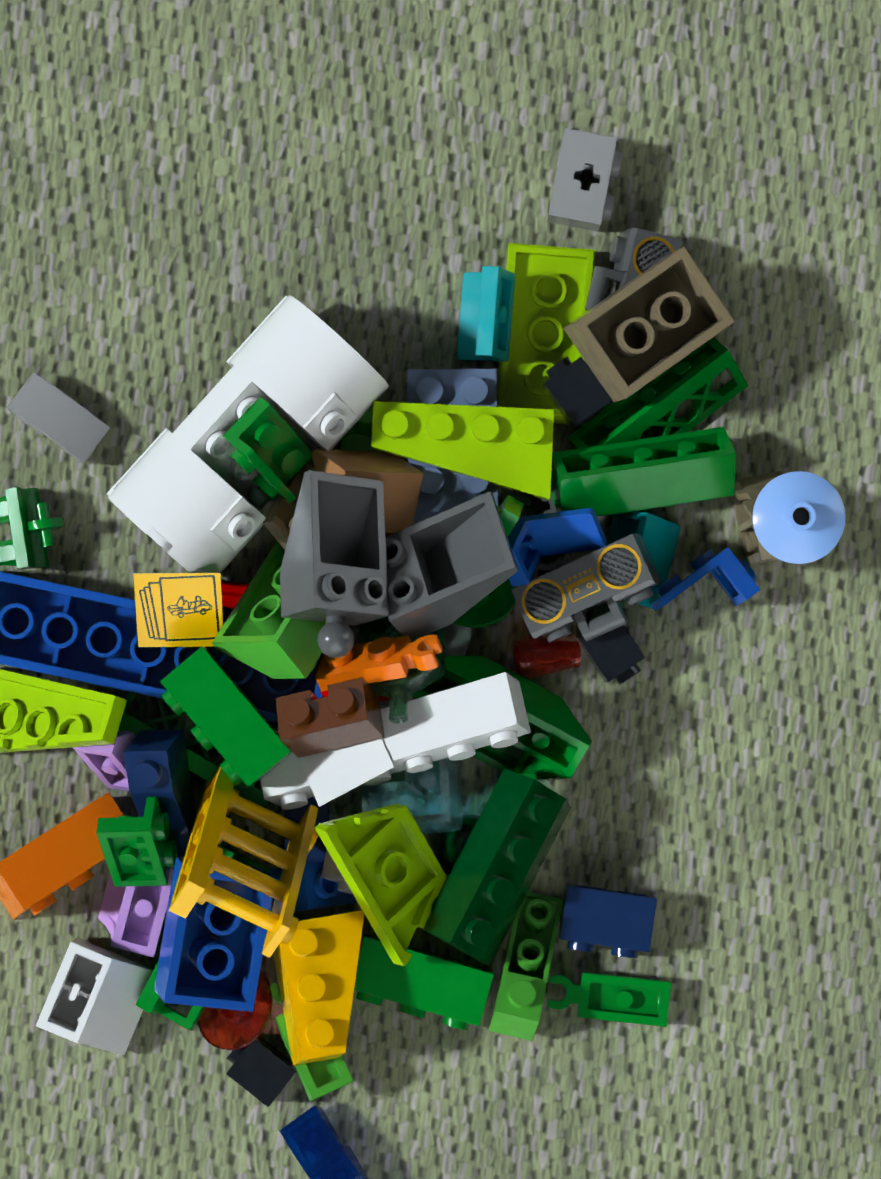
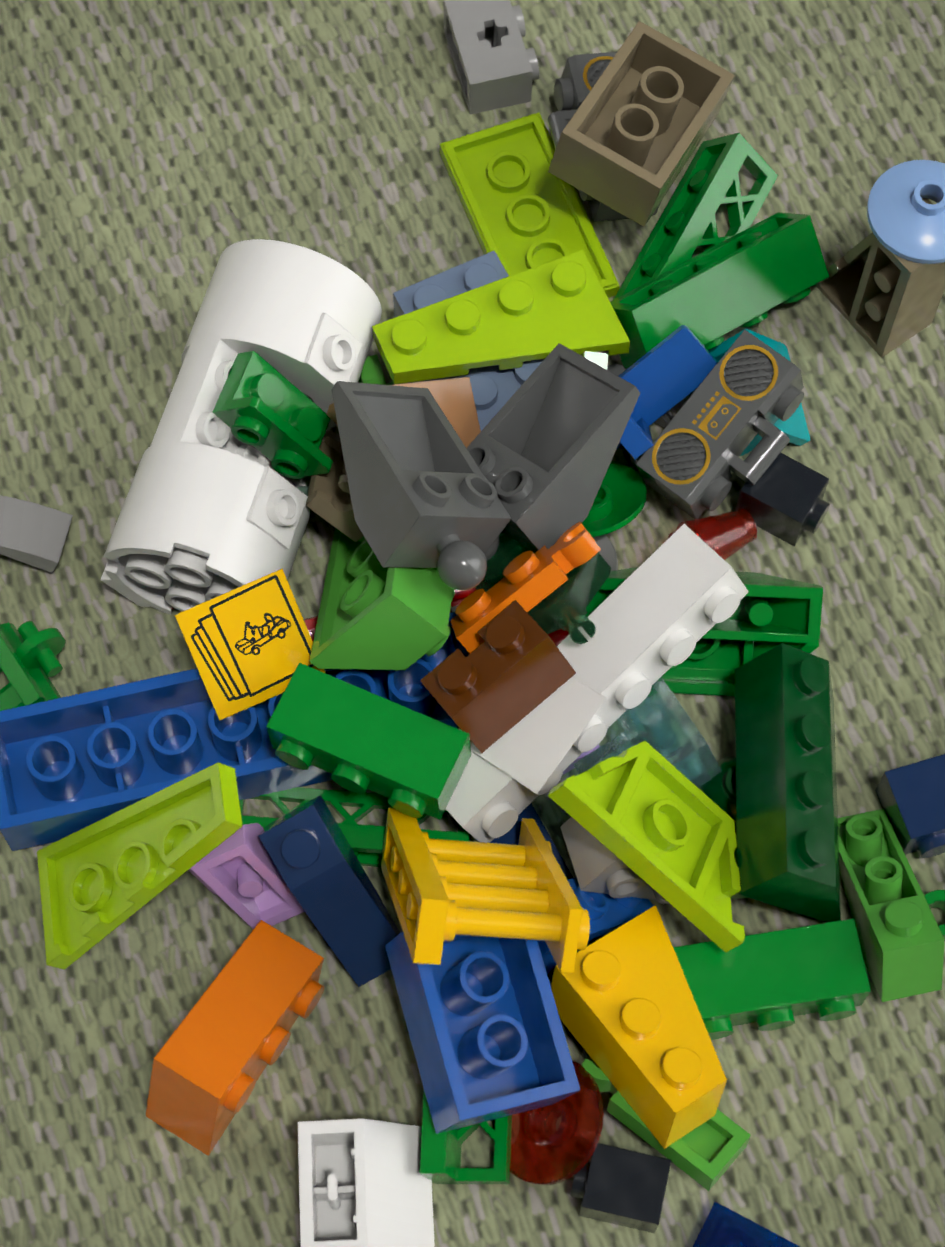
camera: 20 degrees left, 20 degrees down
(135, 915) = (362, 1053): lavender slope -> none
(138, 847) = (328, 958): green bracket -> none
(486, 315) = (450, 214): teal panel -> none
(575, 391) = (604, 234): black brick -> none
(732, 575) = (862, 360): blue bracket -> none

